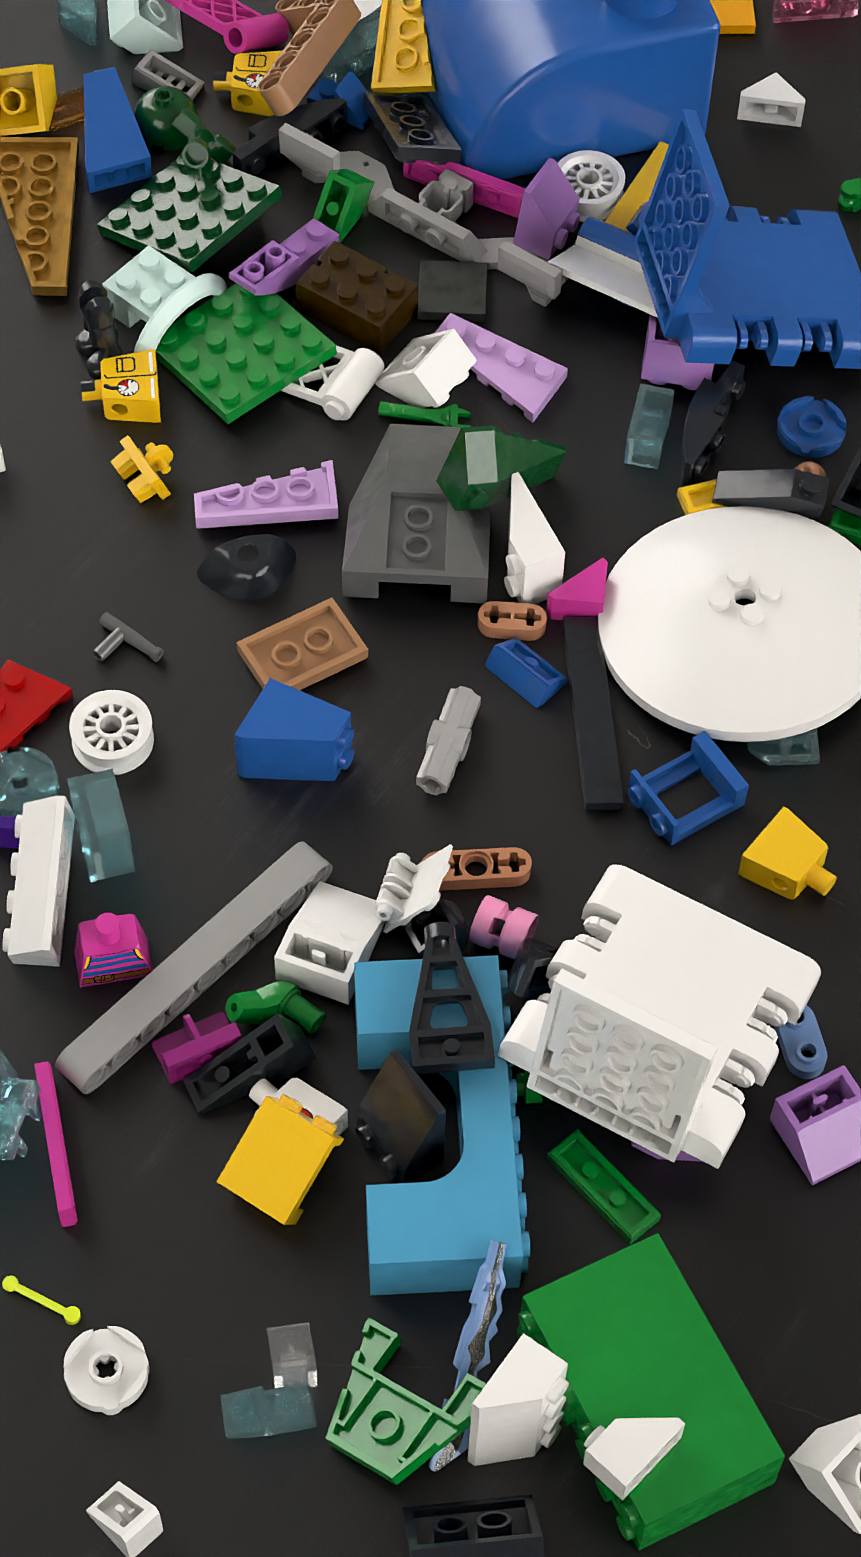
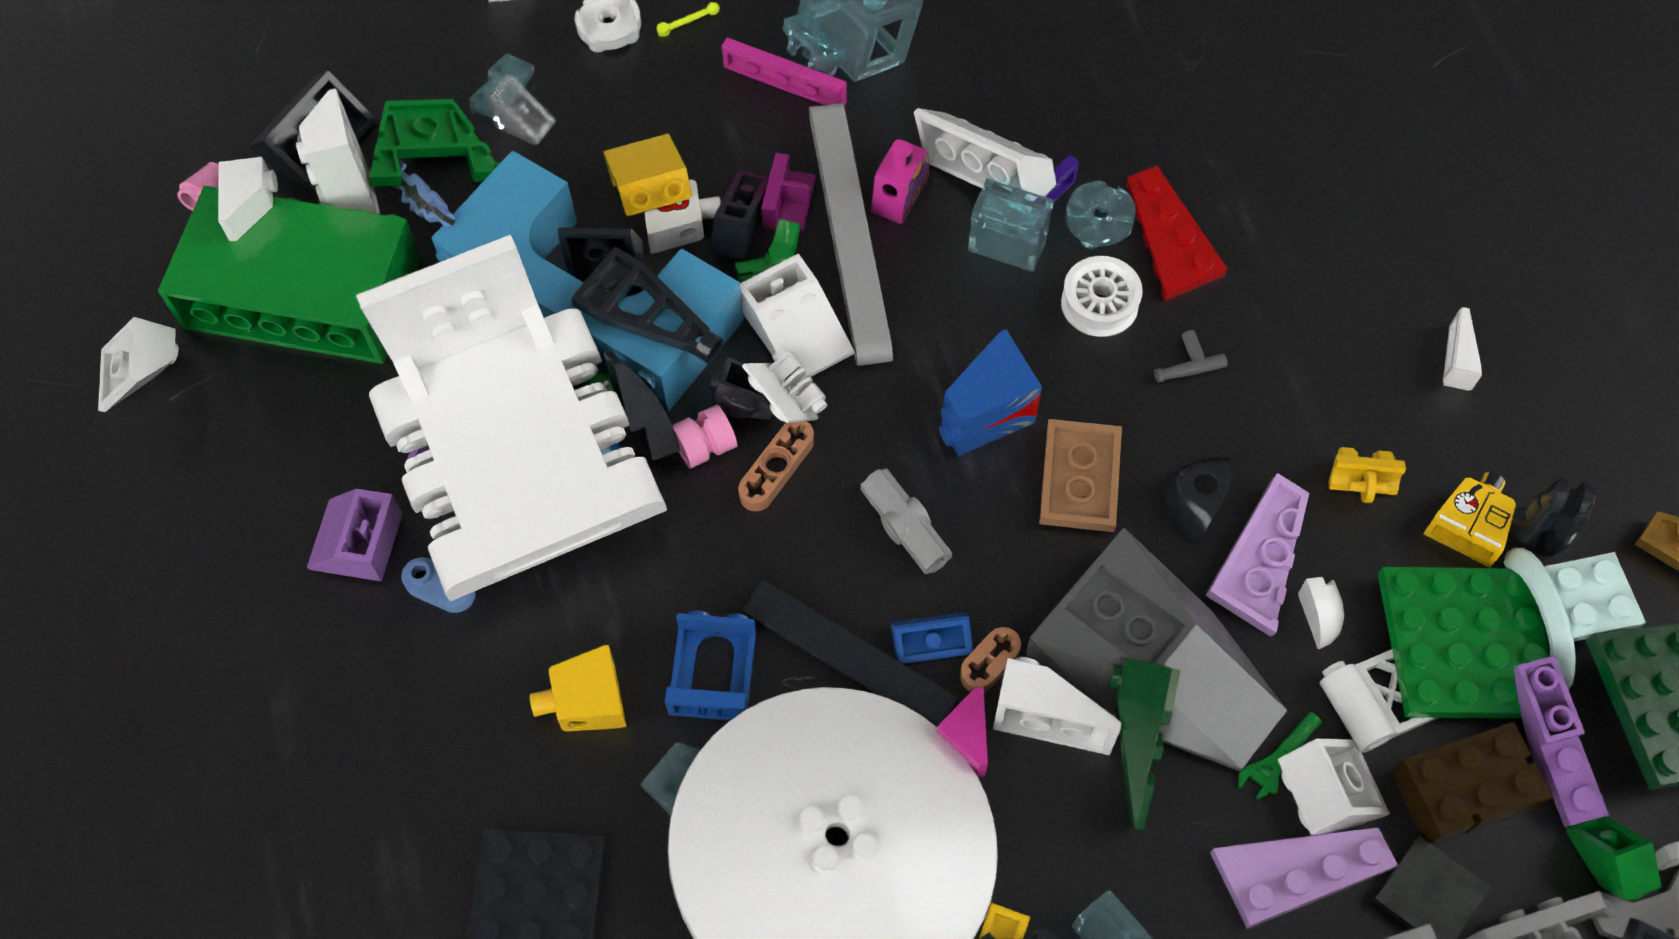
camera: 130 degrees right, 5 degrees up
(286, 445) = (1322, 609): none -> white brick

